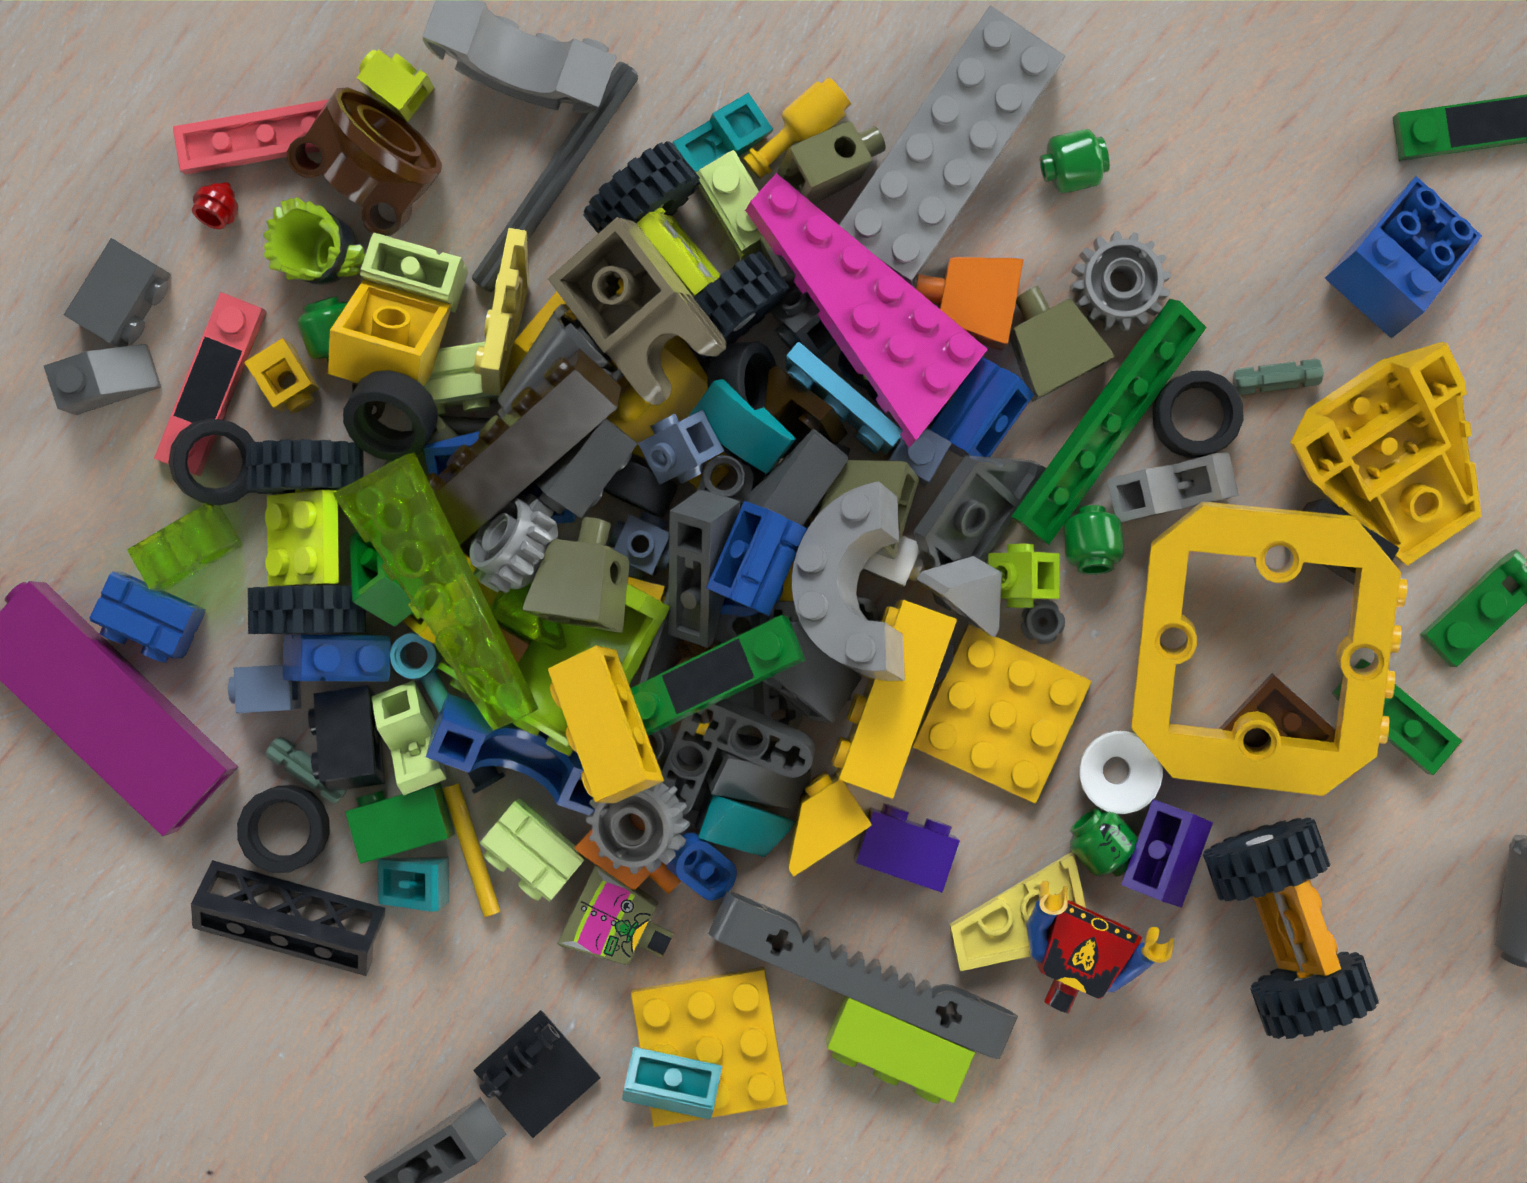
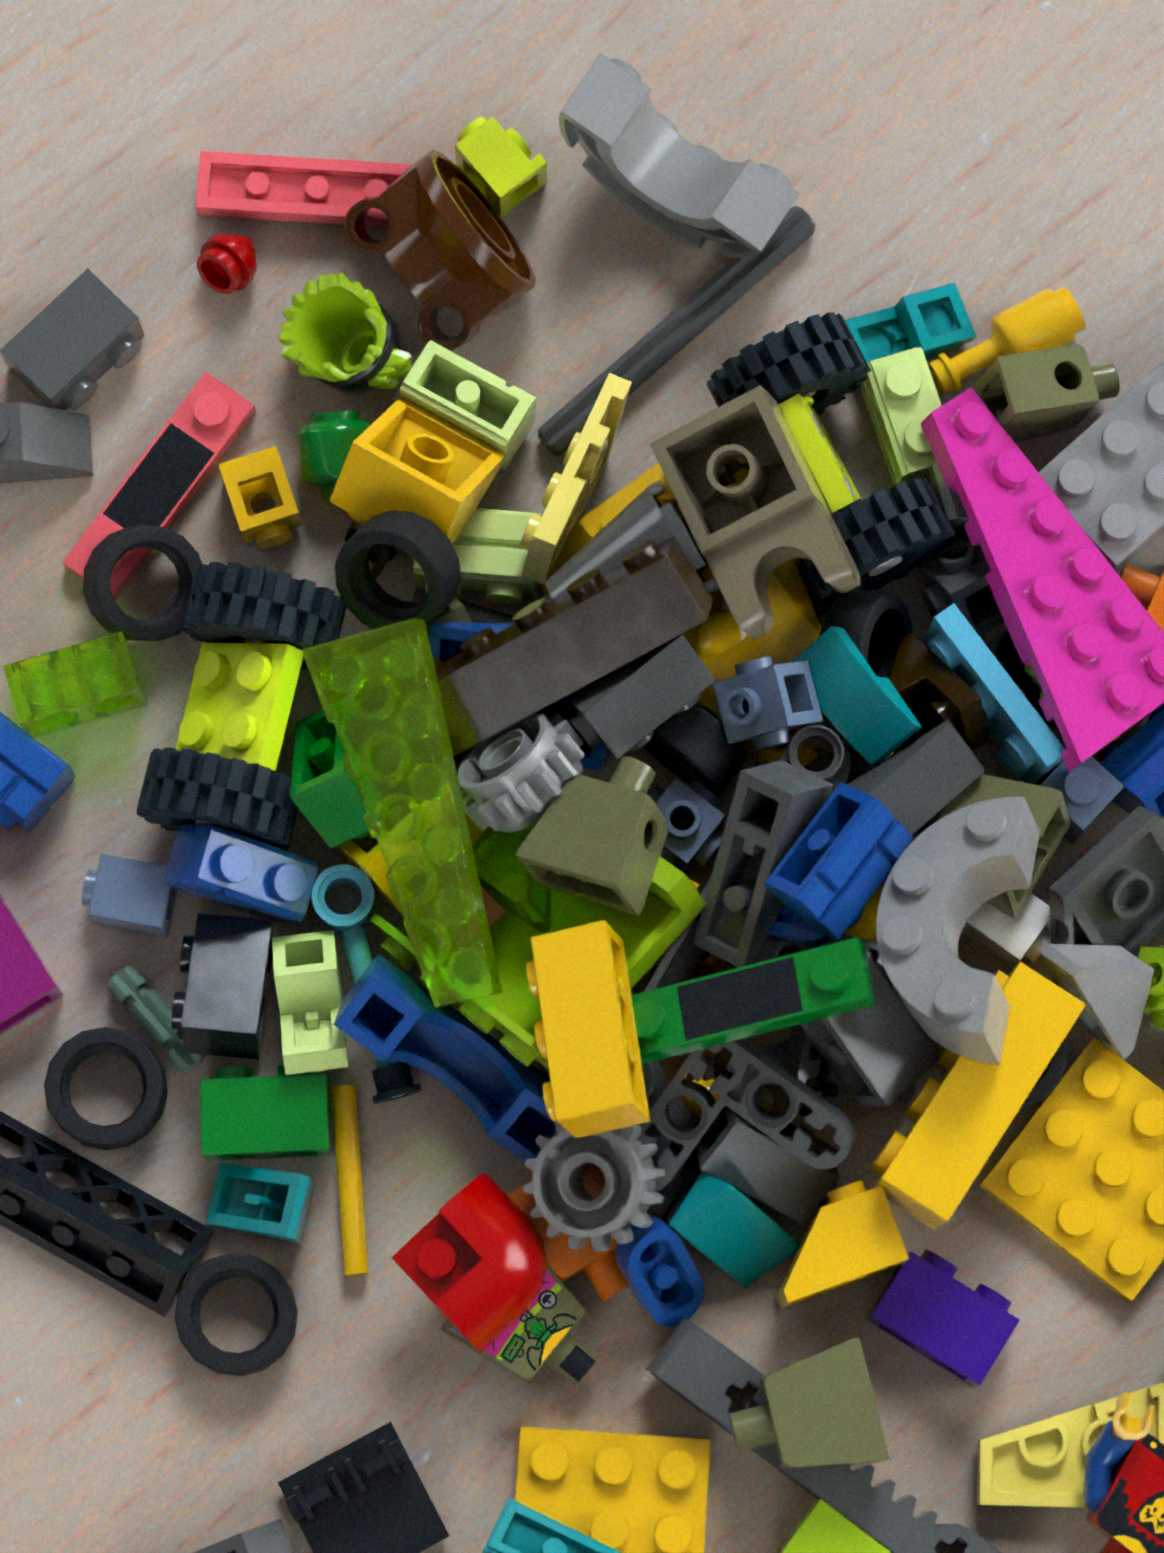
camera: 10 degrees right, 10 degrees down
(380, 971) = (189, 1305): none -> black tyre
(532, 851) = (417, 1178): yellowish green brick -> none
(570, 896) = (477, 1261): none -> red brick
(831, 944) = (816, 1412): none -> olive torso

